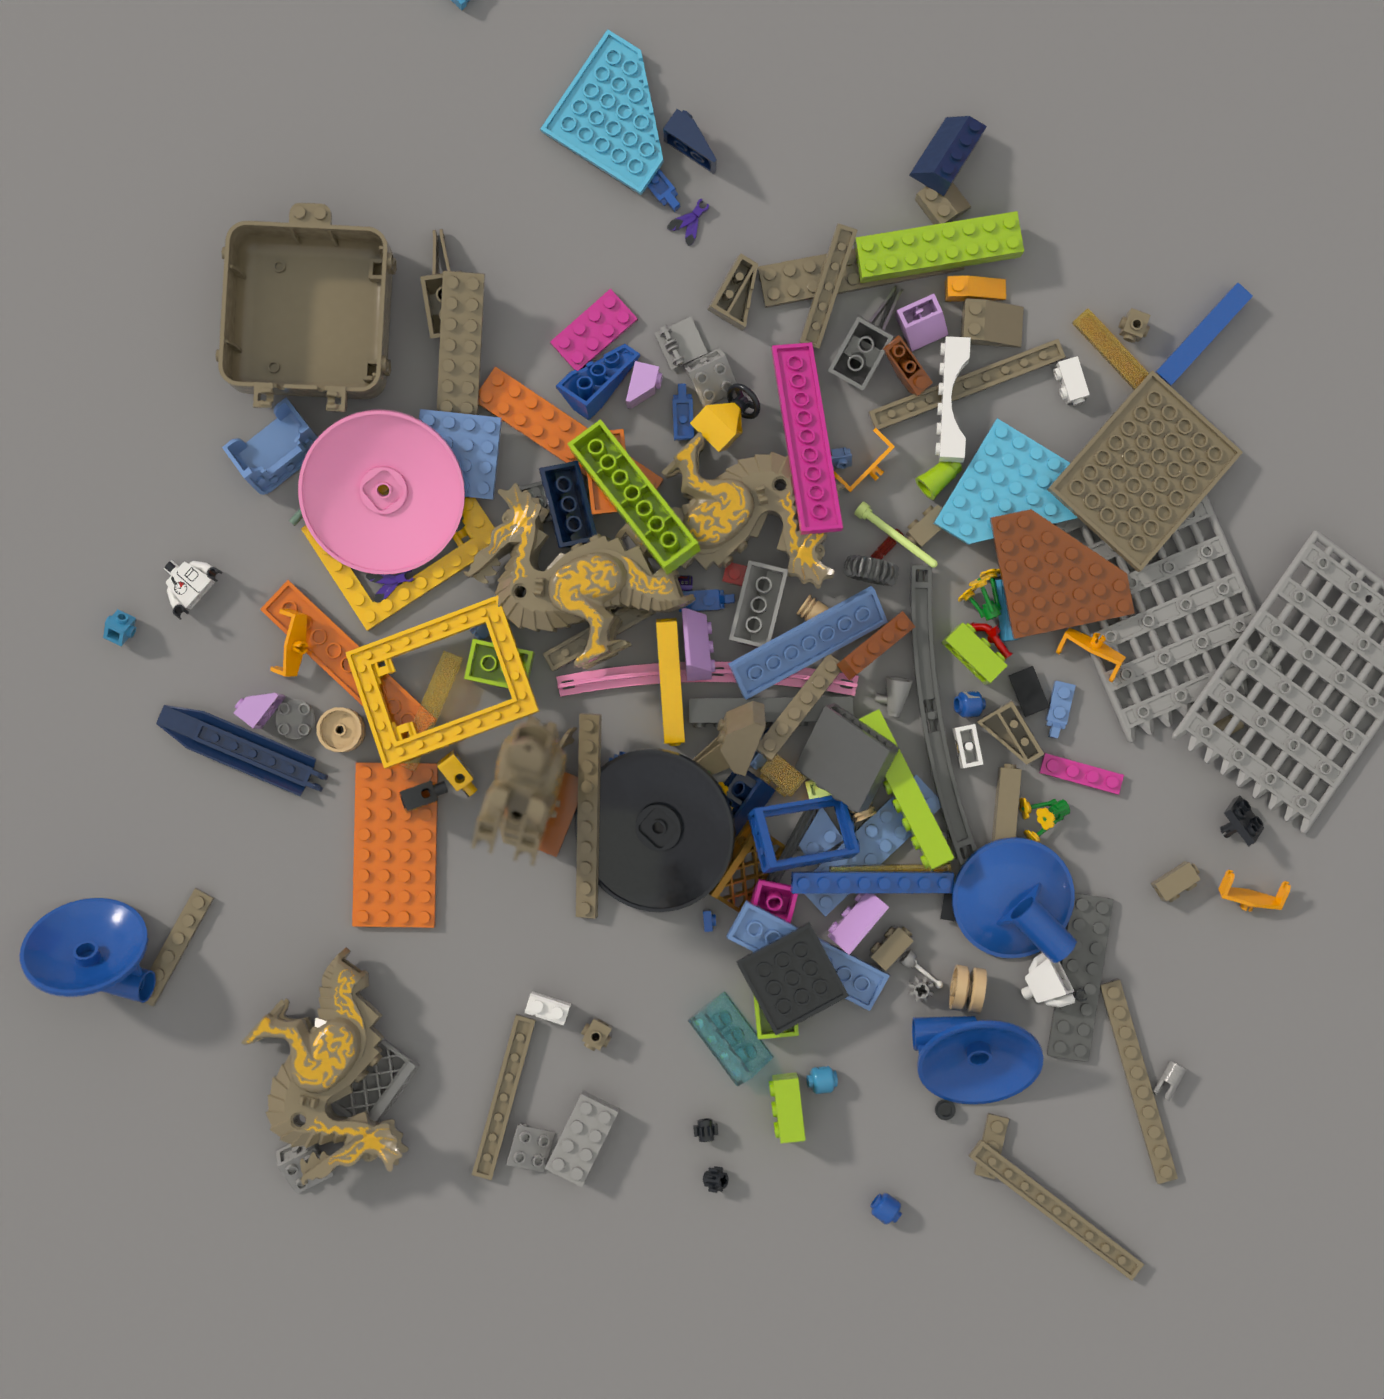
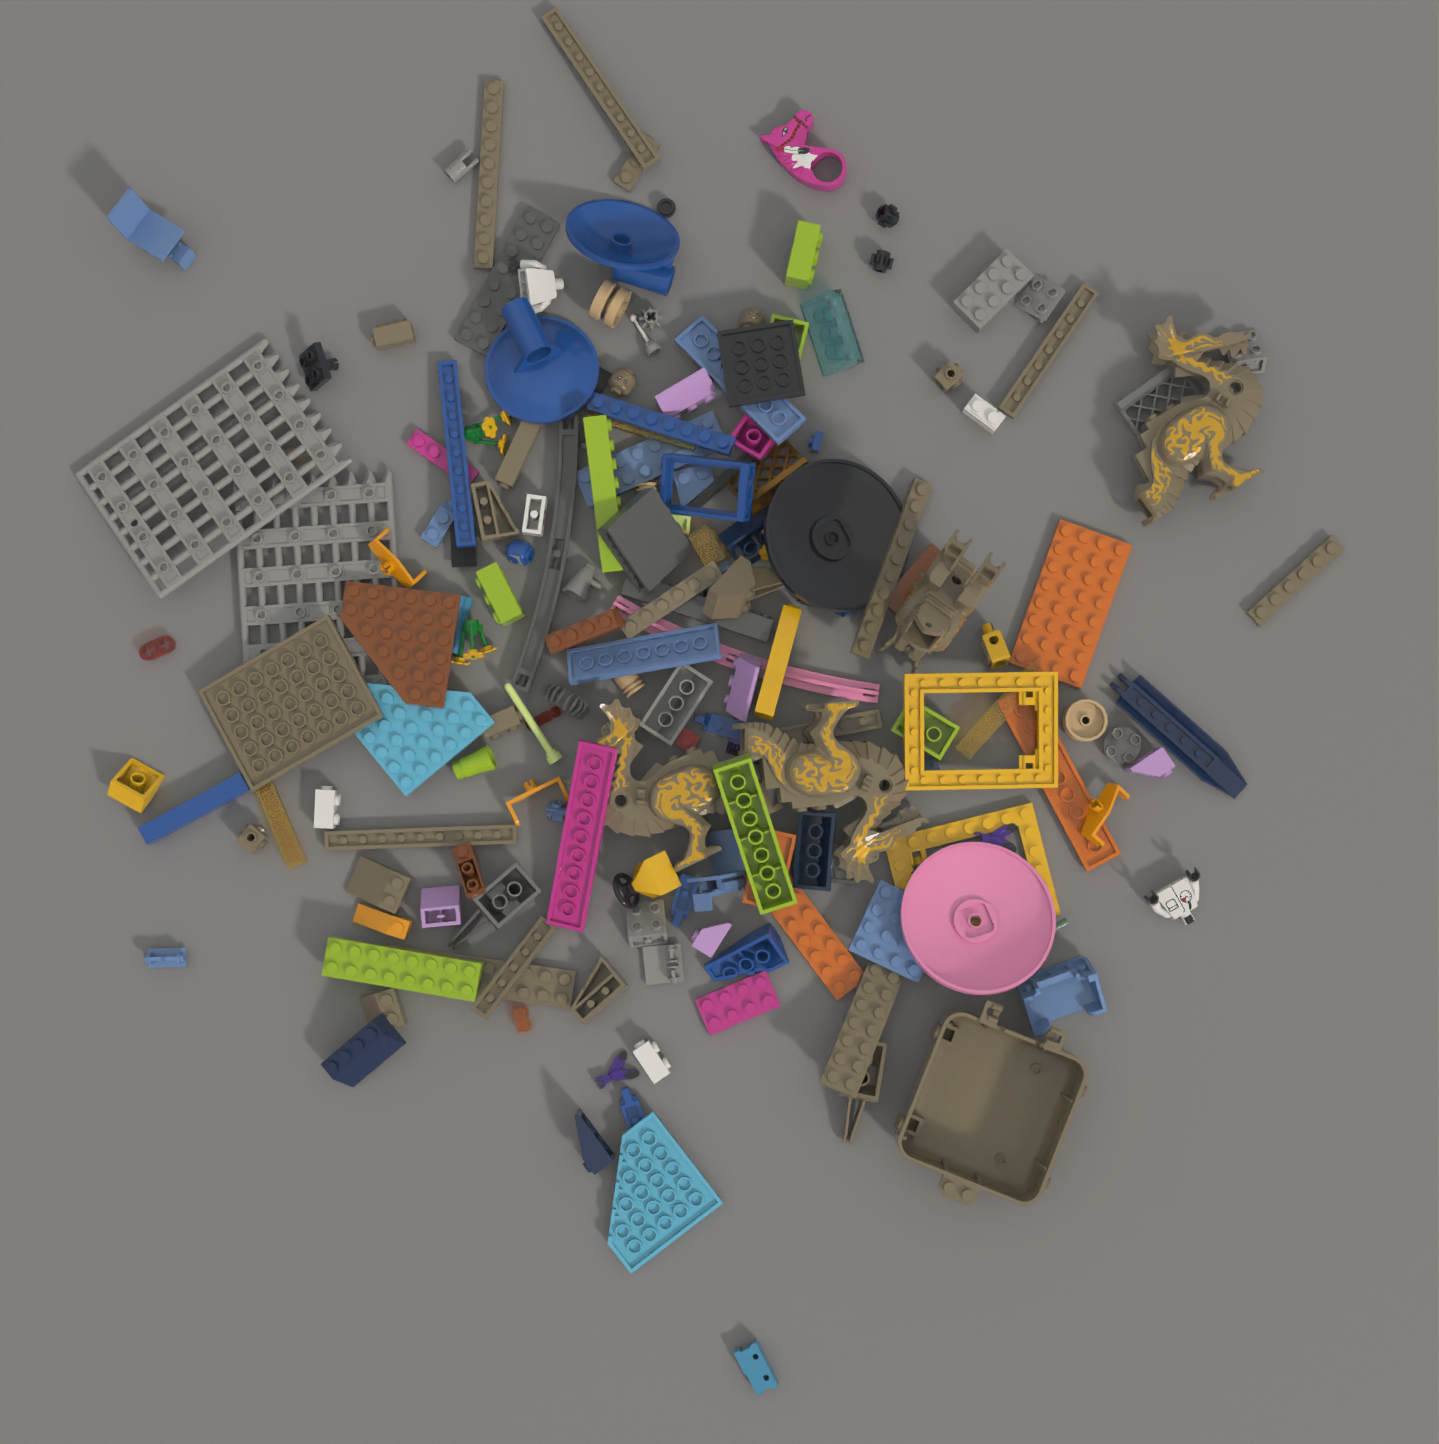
camera: 155 degrees left, 0 degrees up
(89, 950) = (1372, 600): blue dish -> none
(119, 627) = (1251, 880): dark azure brick -> none
(413, 799) = (1041, 637): black torso -> none
(649, 446) = (726, 868): none -> medium blue piece
(659, 243) = (651, 1061): none -> white brick
(802, 240) = (521, 1018): none -> clear orange piece
(818, 1024) = (751, 317): none -> dark tan head
(822, 1079) = (764, 269): dark azure head -> none
(838, 1214) = (791, 151): none -> dark pink animal
(886, 1208) = (747, 140): blue head -> none
(891, 948) = (663, 363): dark tan brick -> none
(927, 913) = (622, 382): none -> dark tan head
(952, 441) = (453, 788): white arch -> none
(993, 637) = (478, 604): red piece -> none
(1069, 781) = (456, 454): none -> blue plate
(1177, 180) = (166, 957): none -> medium blue hinge
(1252, 898) = (332, 297): light orange piece -> none
(1270, 338) = (135, 785): none -> yellow slope
(1295, 479) = (159, 652): none -> clear red beam

